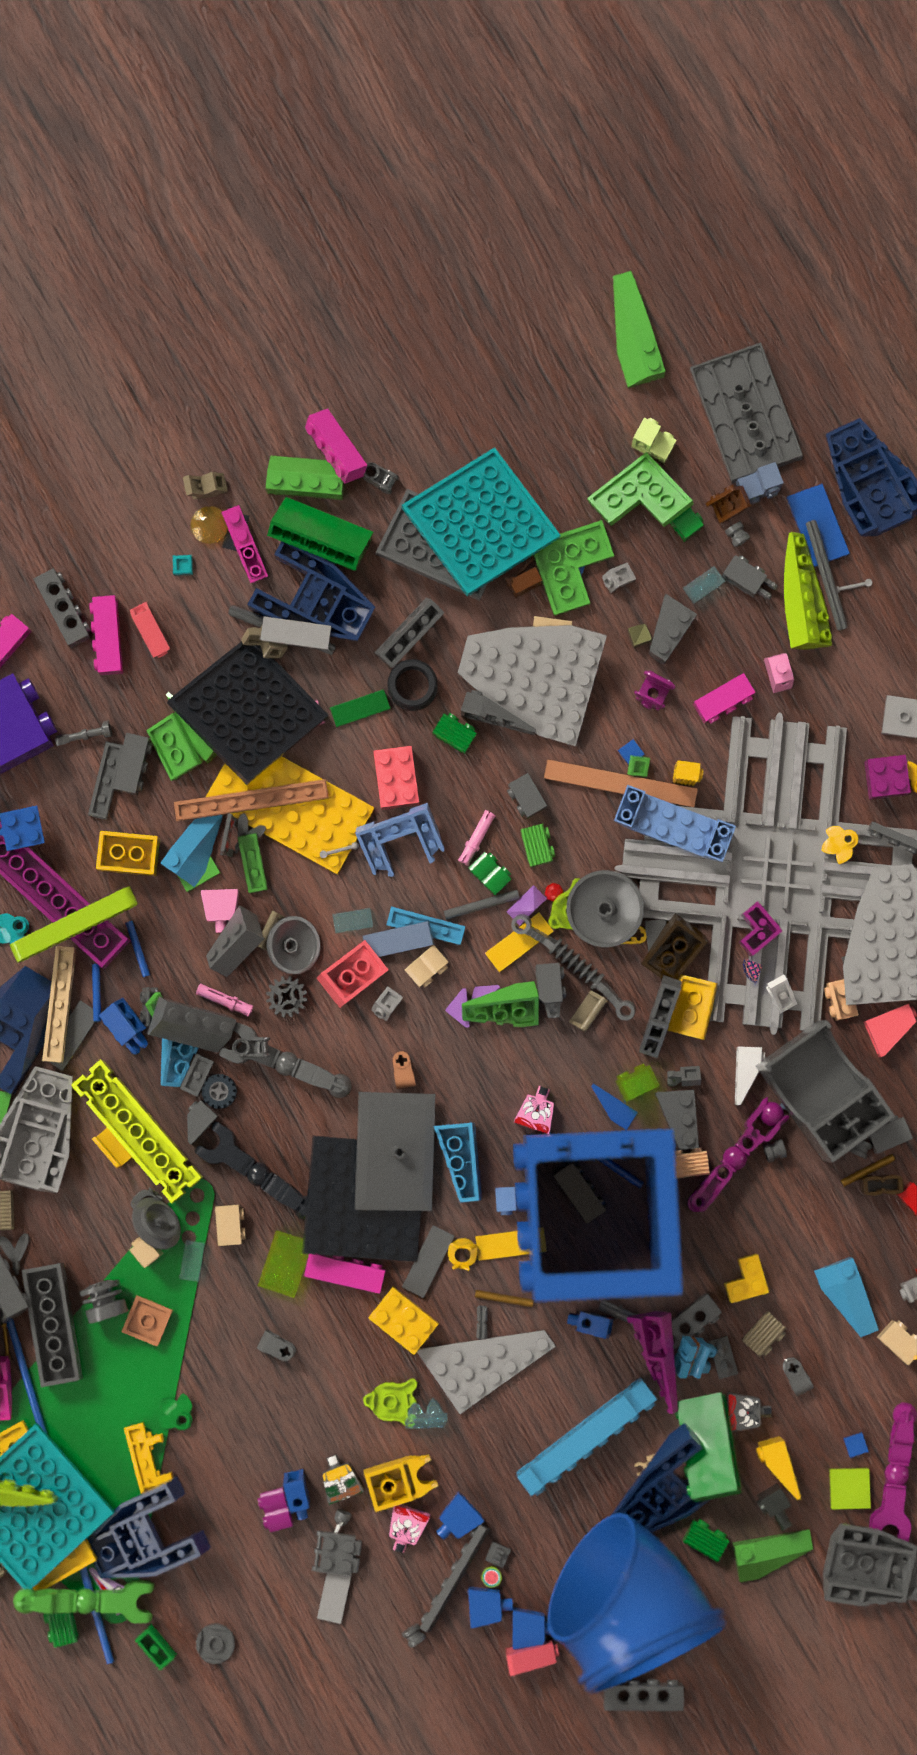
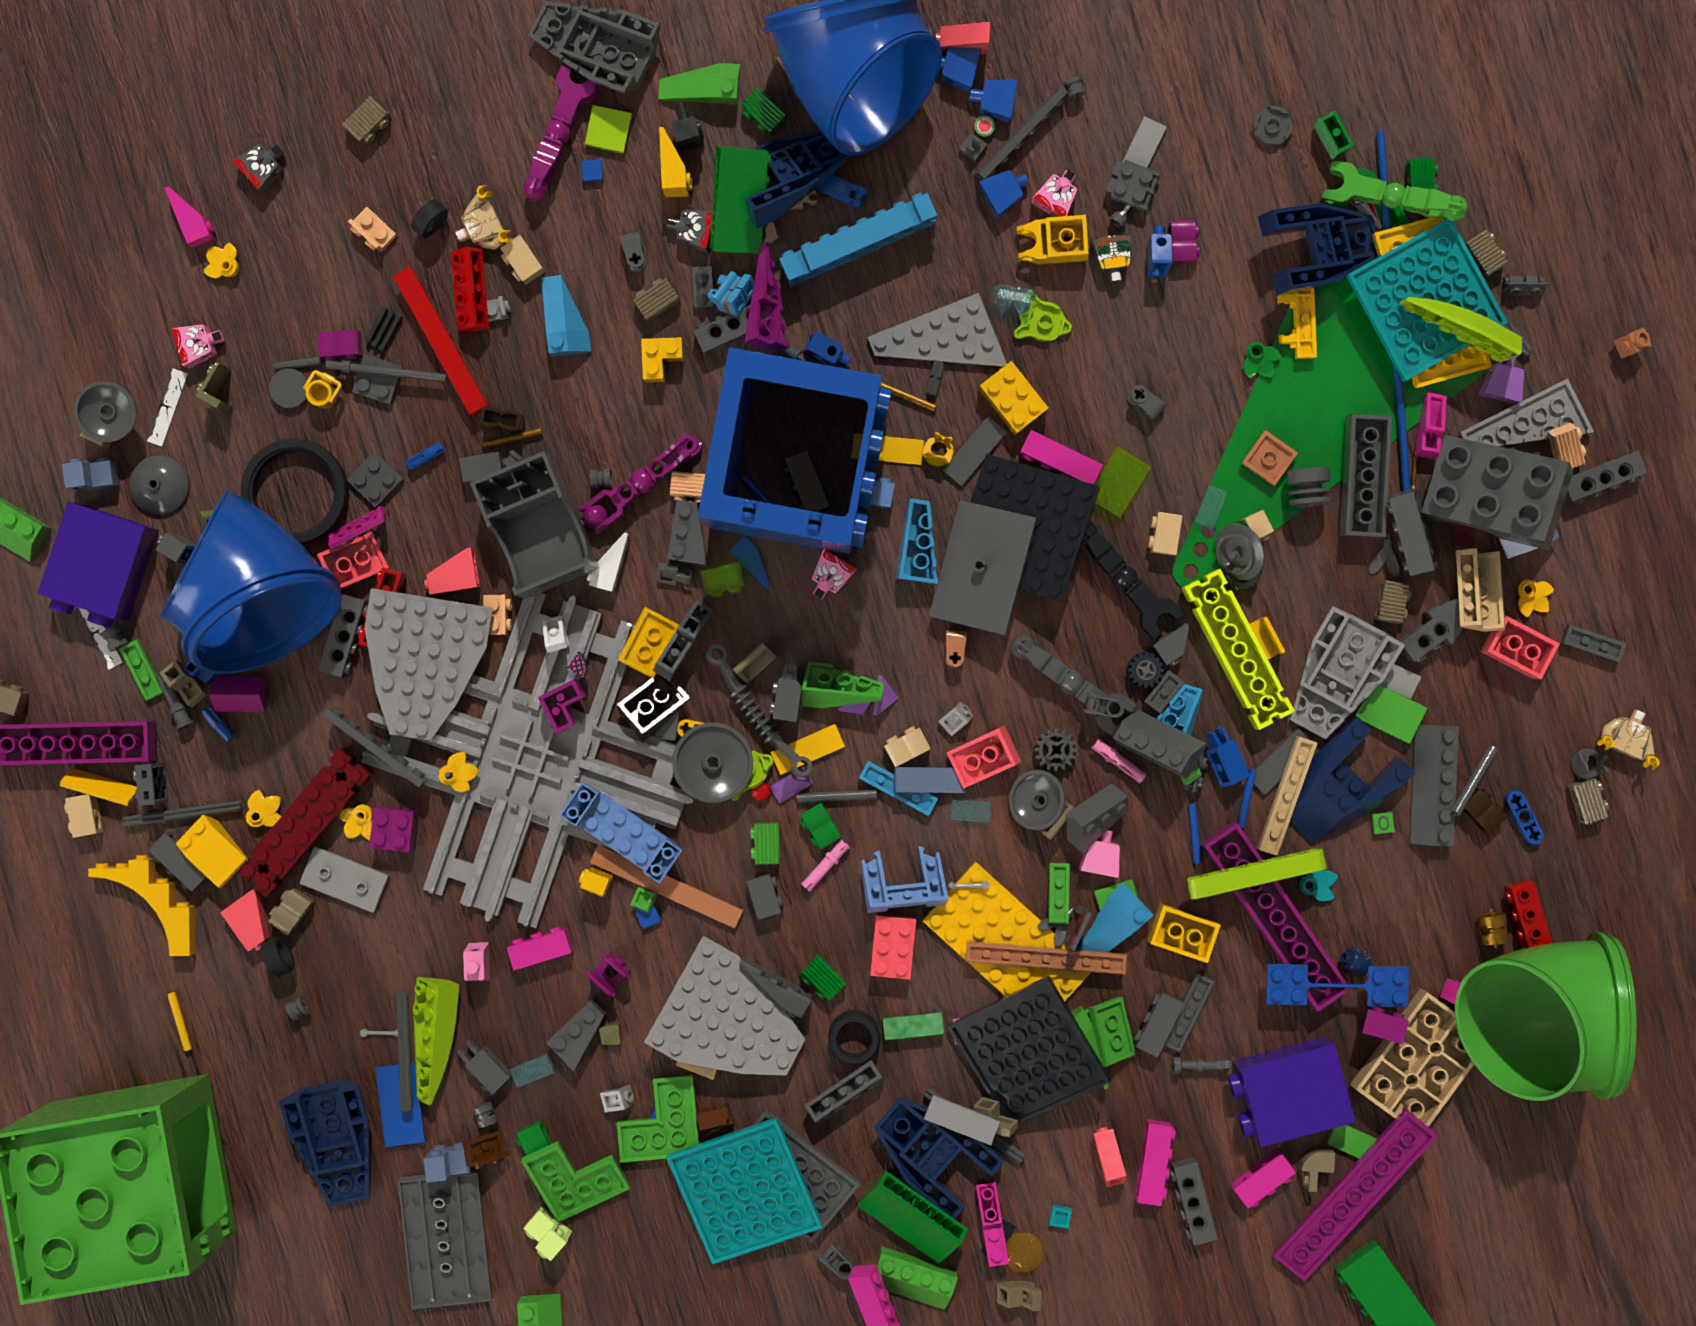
camera: 170 degrees left, 5 degrees up
(613, 1483) = (841, 190): none -> blue plate

